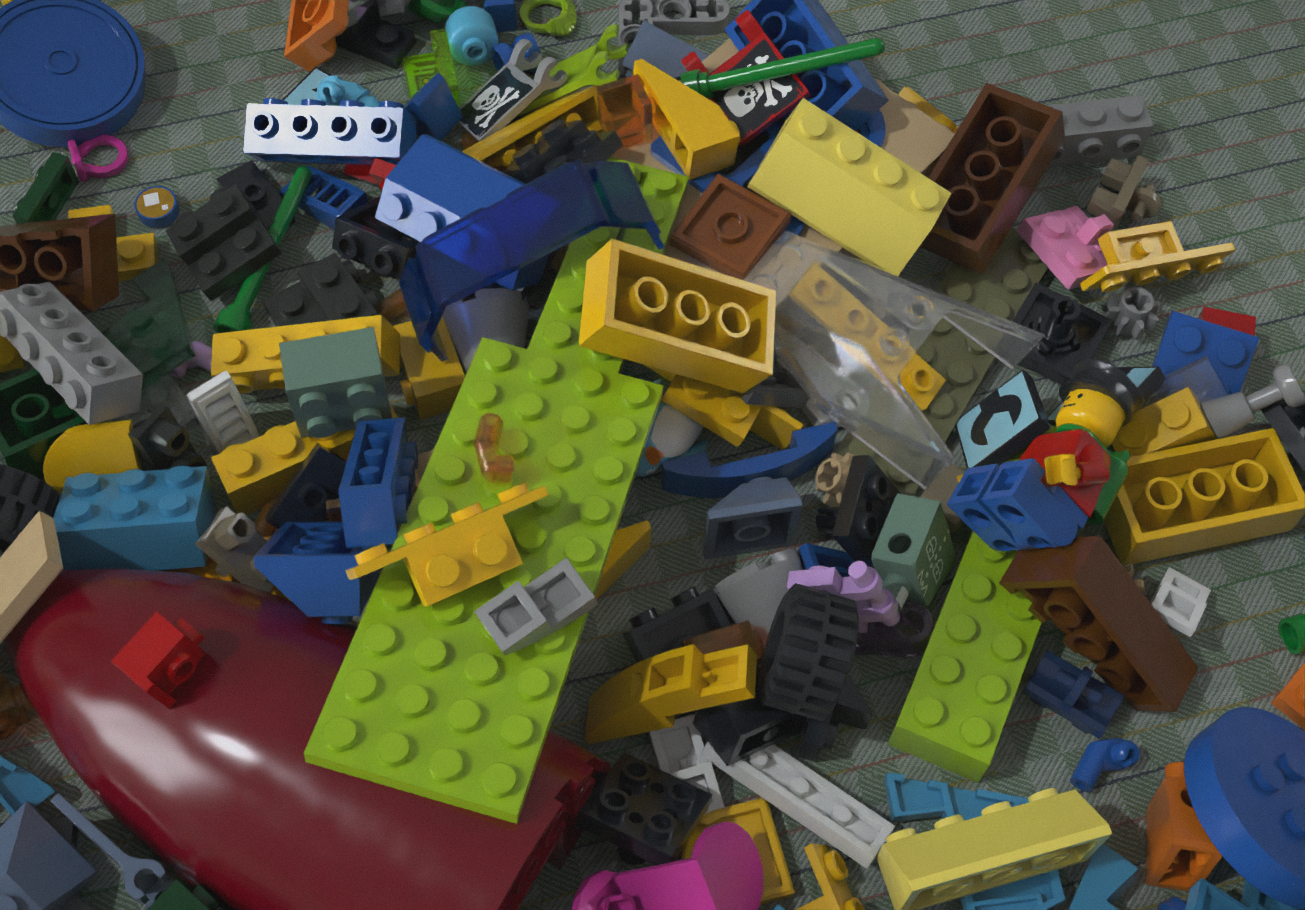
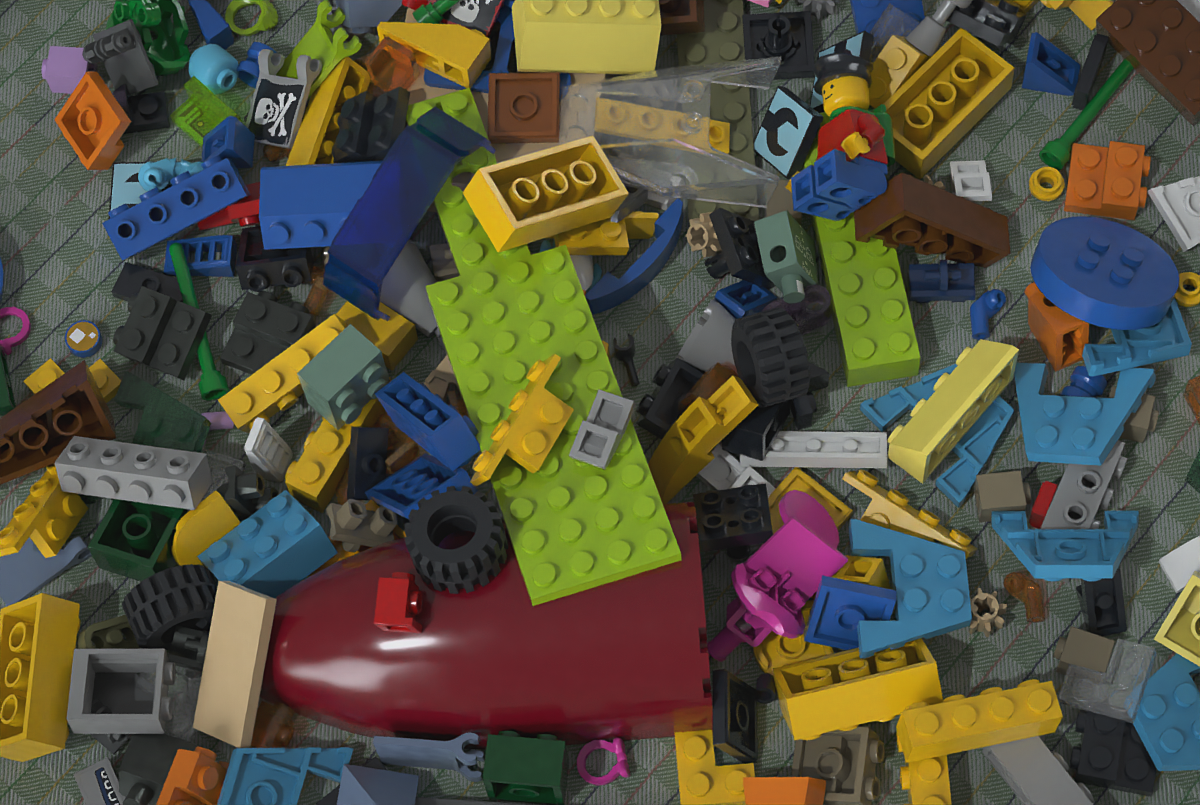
camera: 25 degrees left, 5 degrees up
(270, 591) = (452, 513): none -> black tyre
(486, 446) = (495, 354): clear orange arm -> none
(668, 554) = (626, 355): none -> black hand
(753, 518) = (670, 293): sand blue slope -> none
(862, 585) = (777, 295): lavender plate -> none
(1276, 651) = (1046, 175): none -> yellow plate

